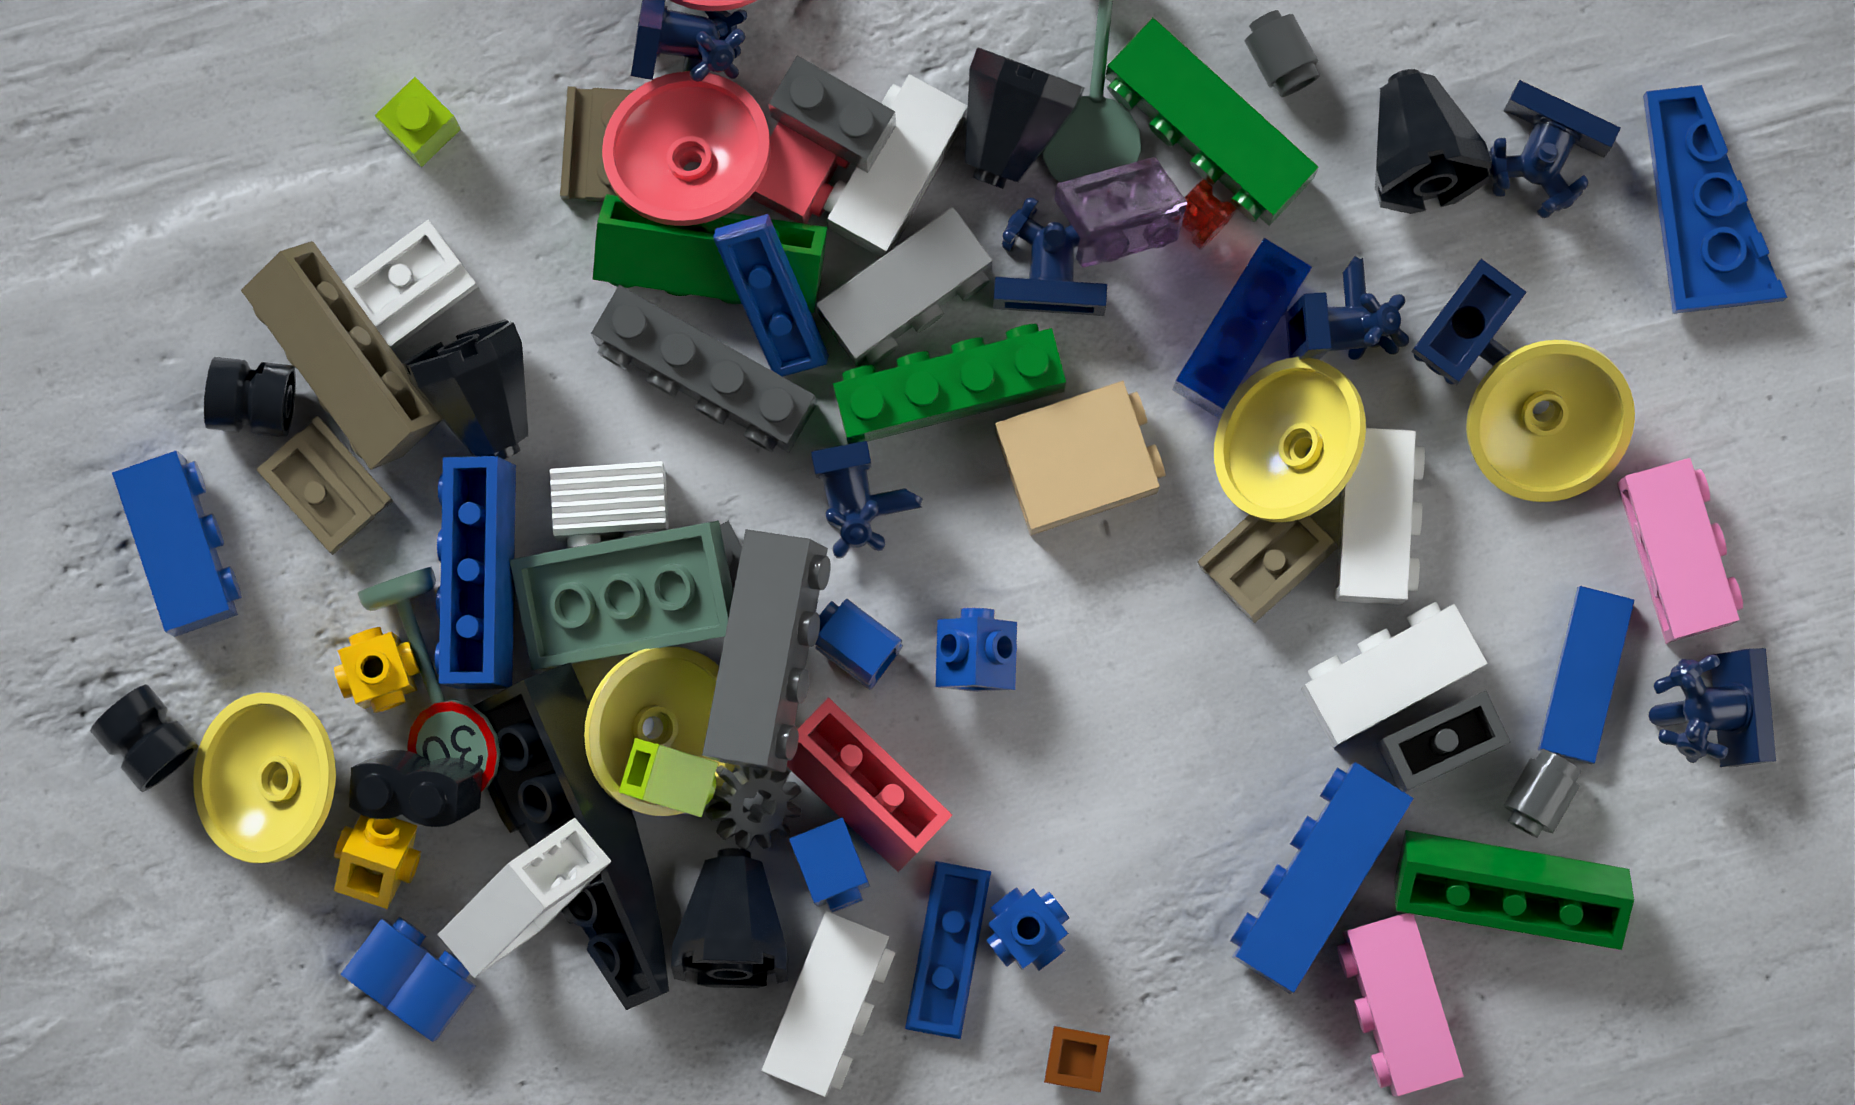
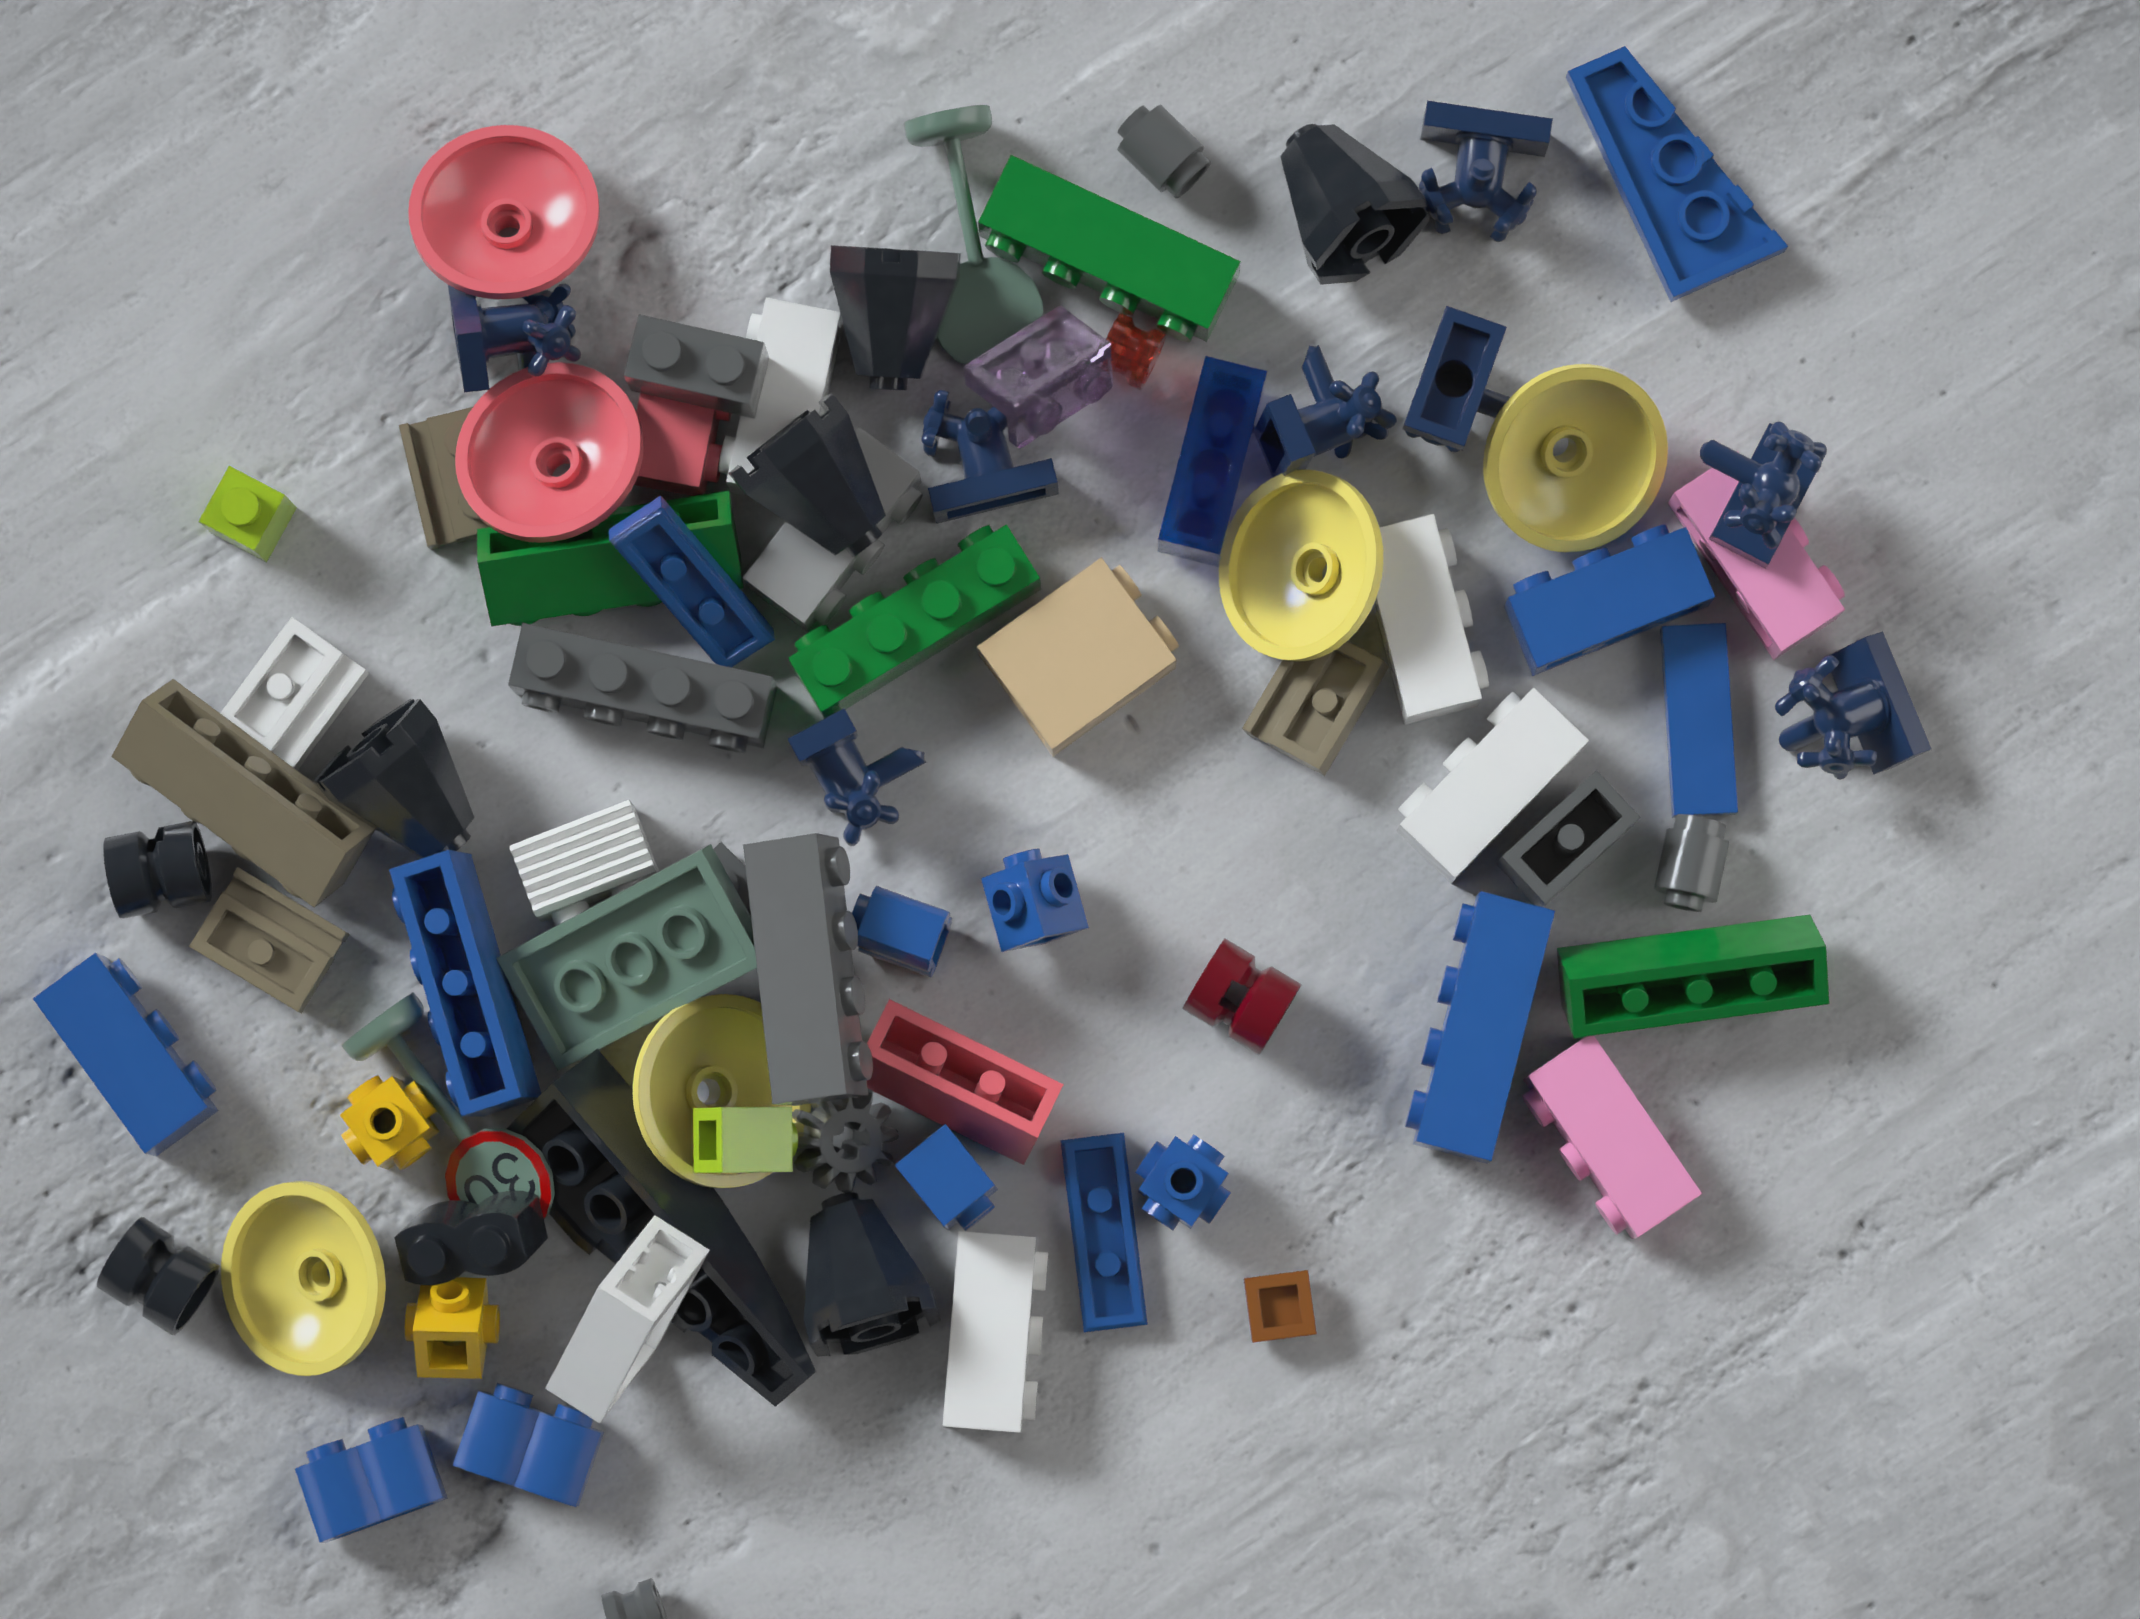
camera: 15 degrees left, 0 degrees up
(267, 966) = (370, 1481): none -> blue brick
(904, 241) = (817, 480): none -> black cone
(1140, 802) = (1260, 1010): none -> dark red wheel
(1541, 547) = (1608, 598): none -> blue brick
(1704, 499) = (1767, 489): none -> dark blue piece

